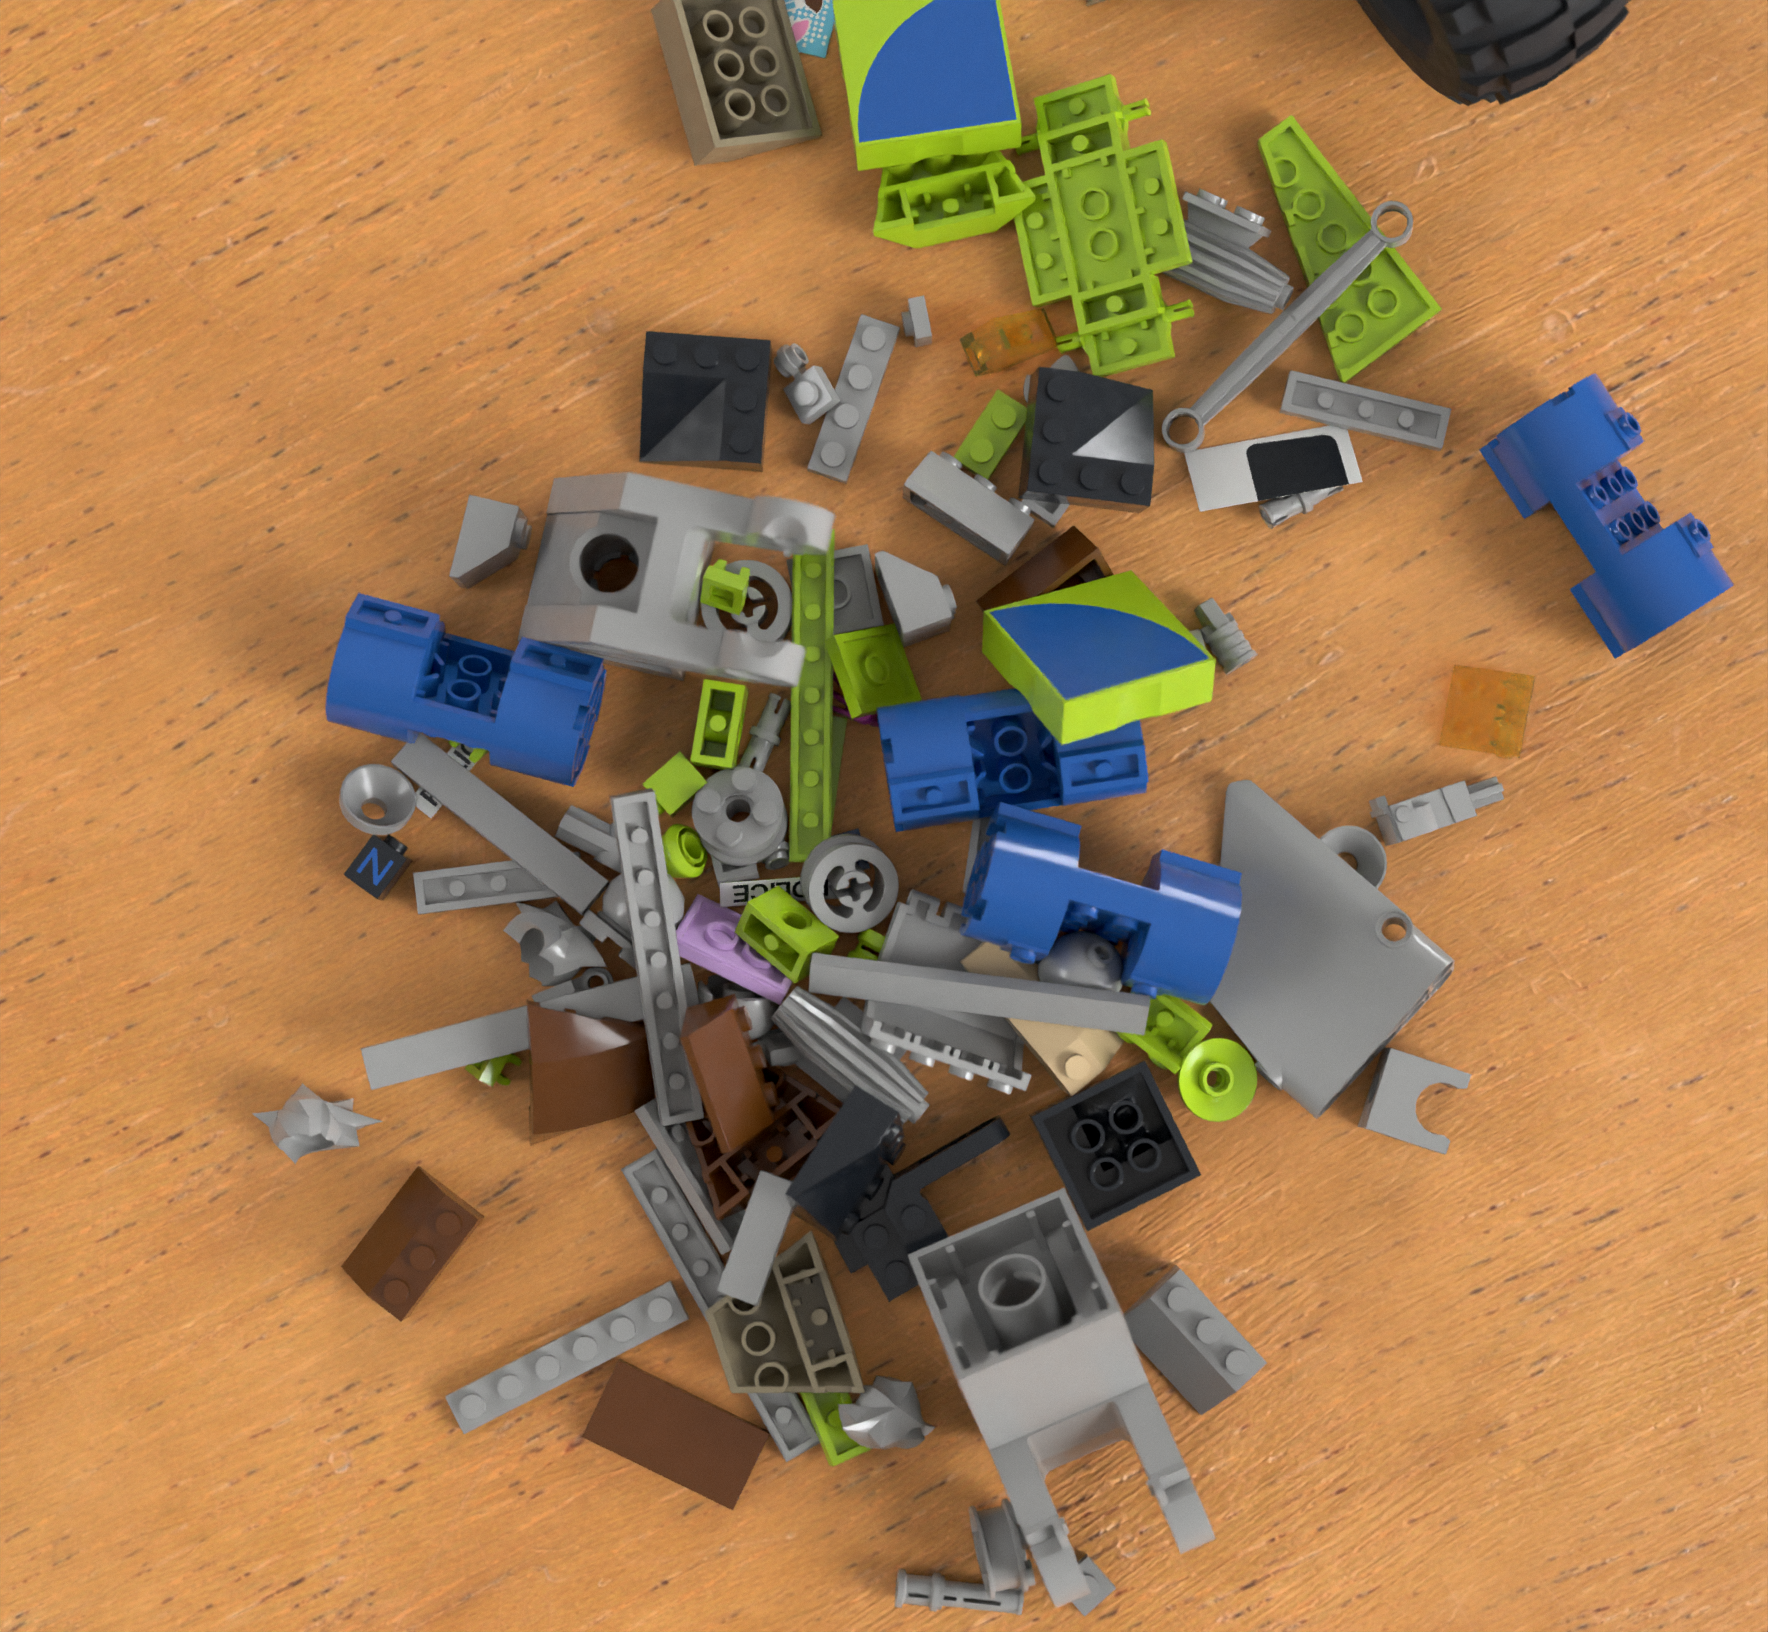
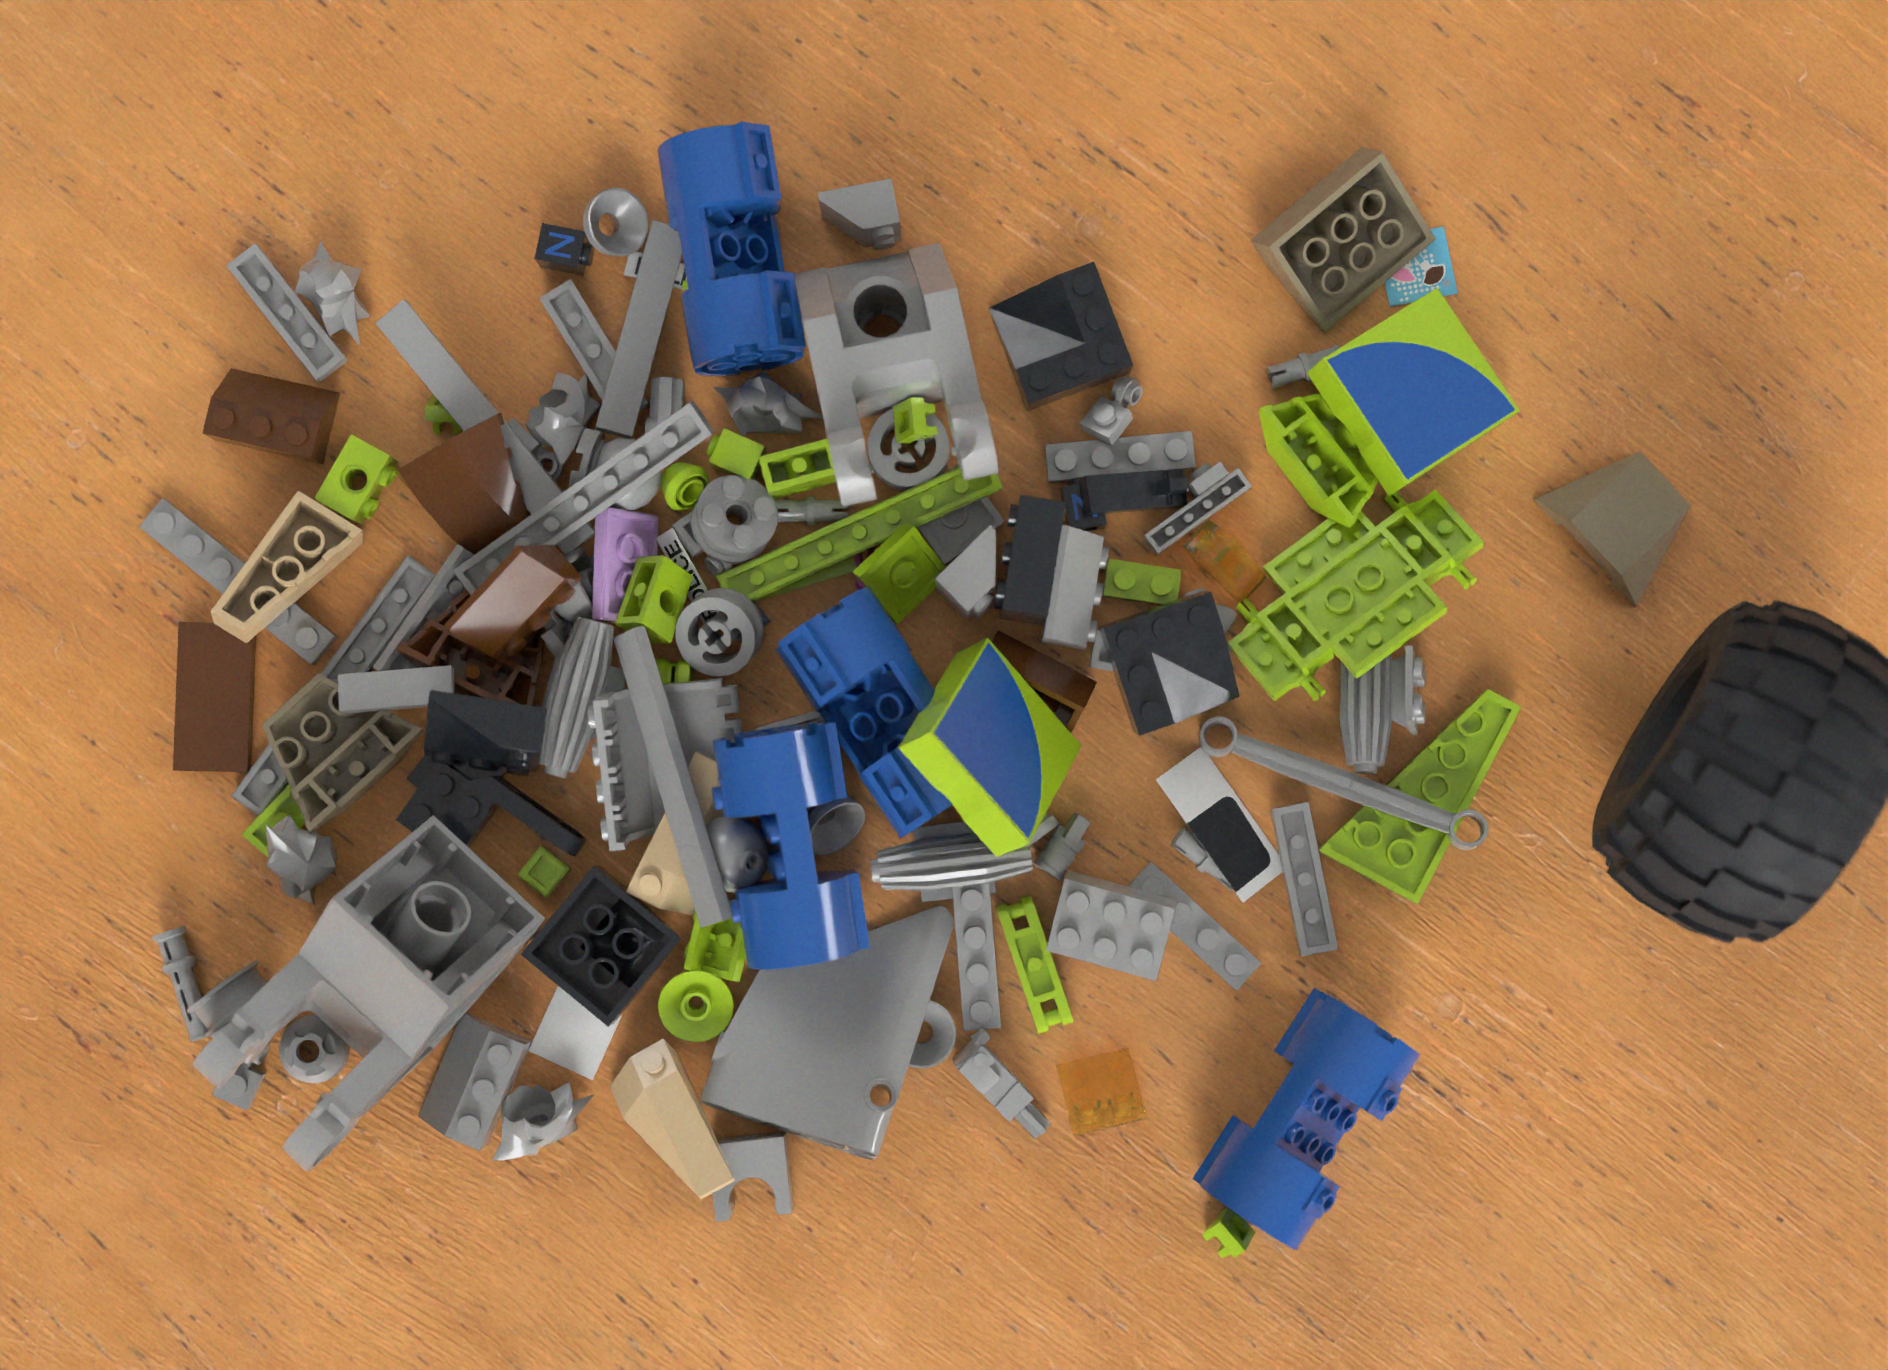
camera: 65 degrees right, 0 degrees up
(311, 1181) = (287, 313): none -> light grey plate
(497, 1176) = (355, 459): none -> lime brick
(573, 1285) = (286, 564): none -> tan wedge
(638, 732) = (765, 407): none -> light grey hair
(846, 175) = (1297, 368): none -> light grey pin
(887, 457) = (1074, 510): none -> black brick
(898, 399) = (1133, 491): none -> black hinge
(926, 531) = (1031, 560): none -> black slope
(947, 347) = (1197, 512): none -> light grey piece
(1009, 1174) = (544, 871): none -> lime tile
(1090, 1470) = (332, 1050): none -> light grey piece
(1100, 850) = (835, 824): none -> light grey piece
(1188, 1221) = (572, 1036): none -> white sticker
(1190, 757) = (945, 859): none -> light grey plate
(1259, 1292) = (536, 1119): none -> light grey hair
(1292, 773) = (976, 957): none -> light grey plate
(1311, 1157) = (667, 1114): none -> tan wedge
(1326, 621) = (1111, 925): none -> light grey brick
(1328, 719) = (1034, 964): none -> lime plate
(1361, 543) = (1200, 930): none -> light grey plate
(1684, 644) = (1231, 1231): none -> lime tile

